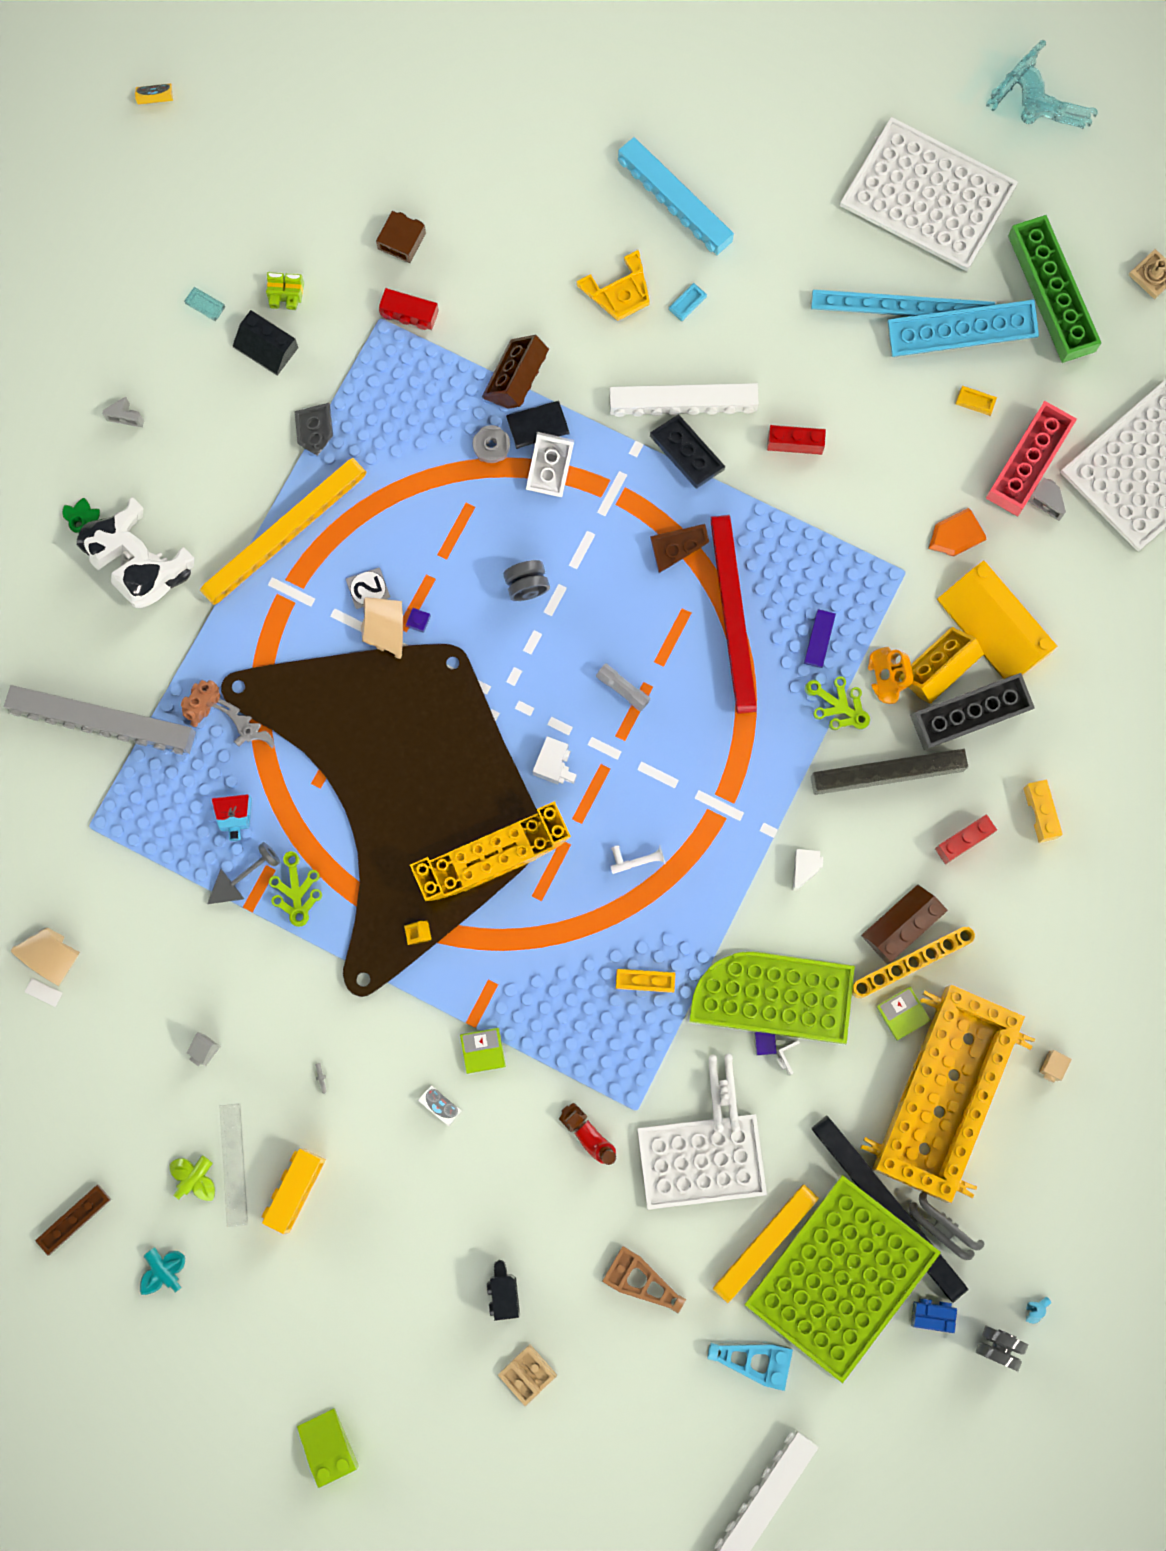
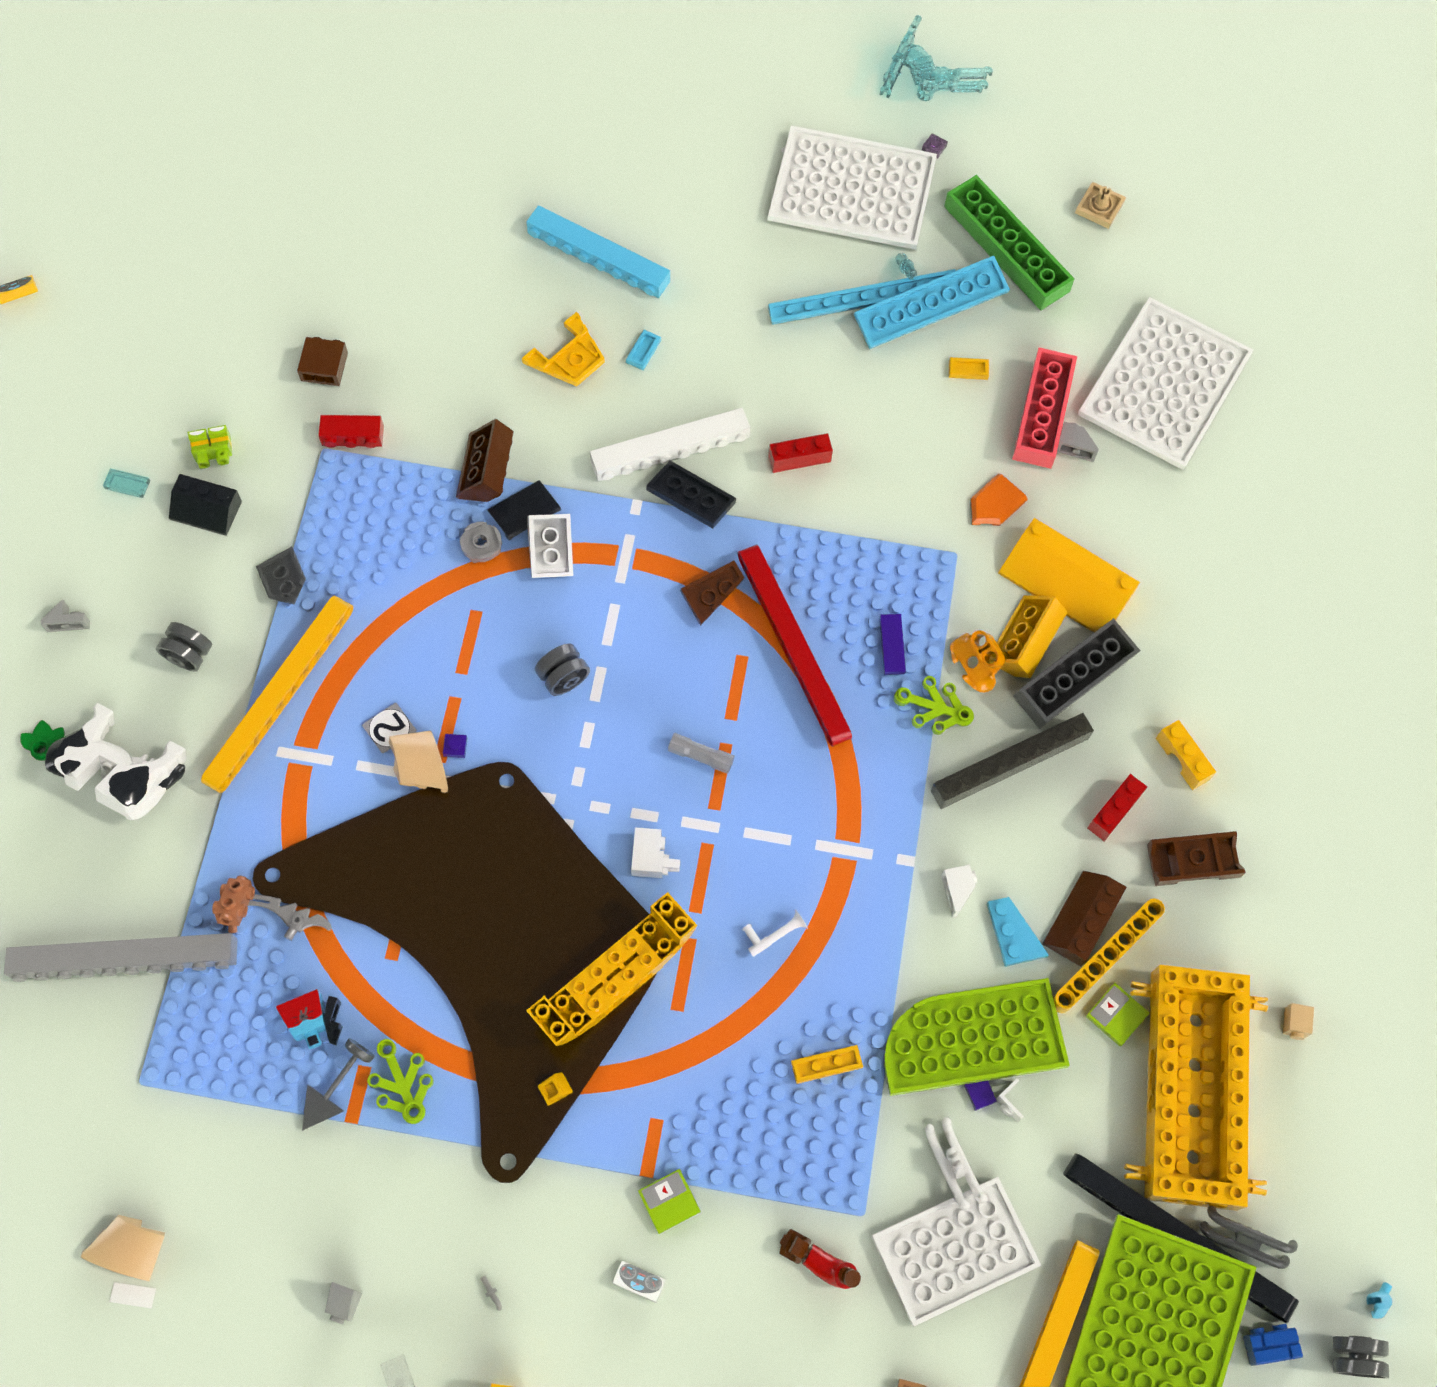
camera: 20 degrees left, 10 degrees down
(215, 468) = (184, 646): none -> dark grey wheel
(255, 815) = (332, 1028): none -> black slope
(839, 920) = (1014, 936): none -> medium azure wing
(951, 286) = (906, 266): none -> clear light blue axle
(1017, 903) = (1194, 858): none -> reddish brown piece
(1020, 171) = (935, 145): none -> clear purple plate

